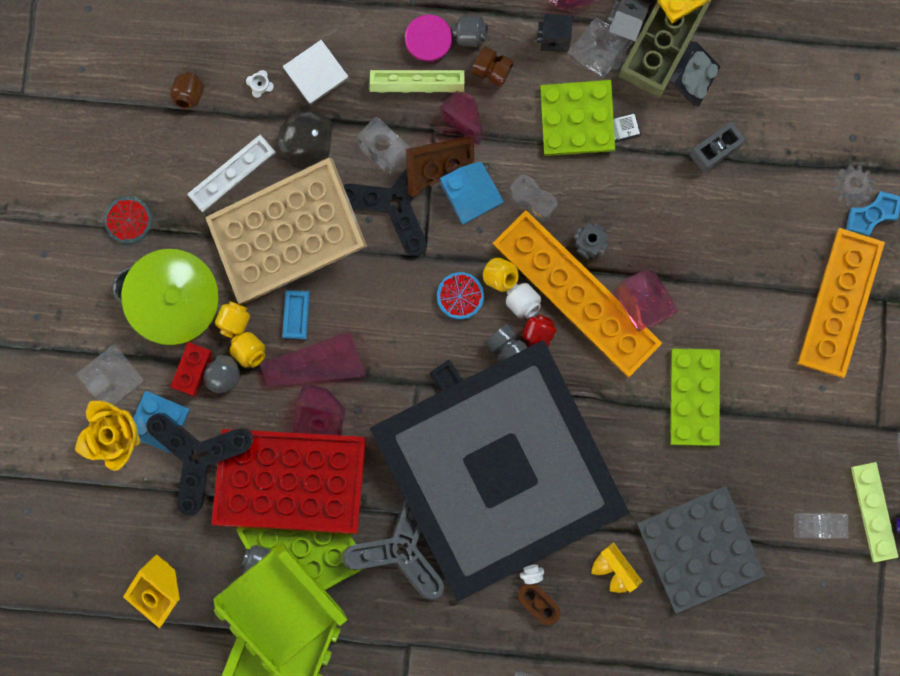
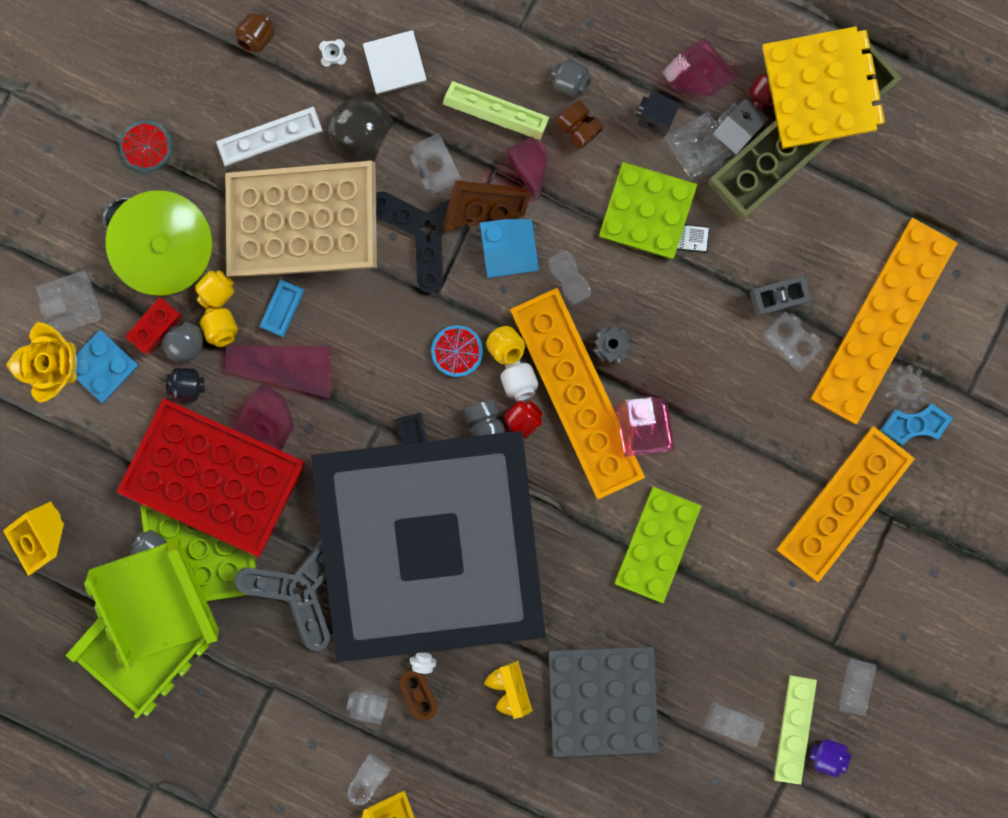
camera: 20 degrees right, 5 degrees up
(195, 473) = (117, 401): black piece -> none
(236, 410) = (184, 385): none -> black head
(428, 38) = (525, 69): dark pink tile -> none
(499, 627) = (368, 705): none -> clear brick
(694, 73) = (786, 210): piece -> none
(740, 188) = (788, 346): none -> clear brick
(812, 138) = (883, 321): none -> light orange plate

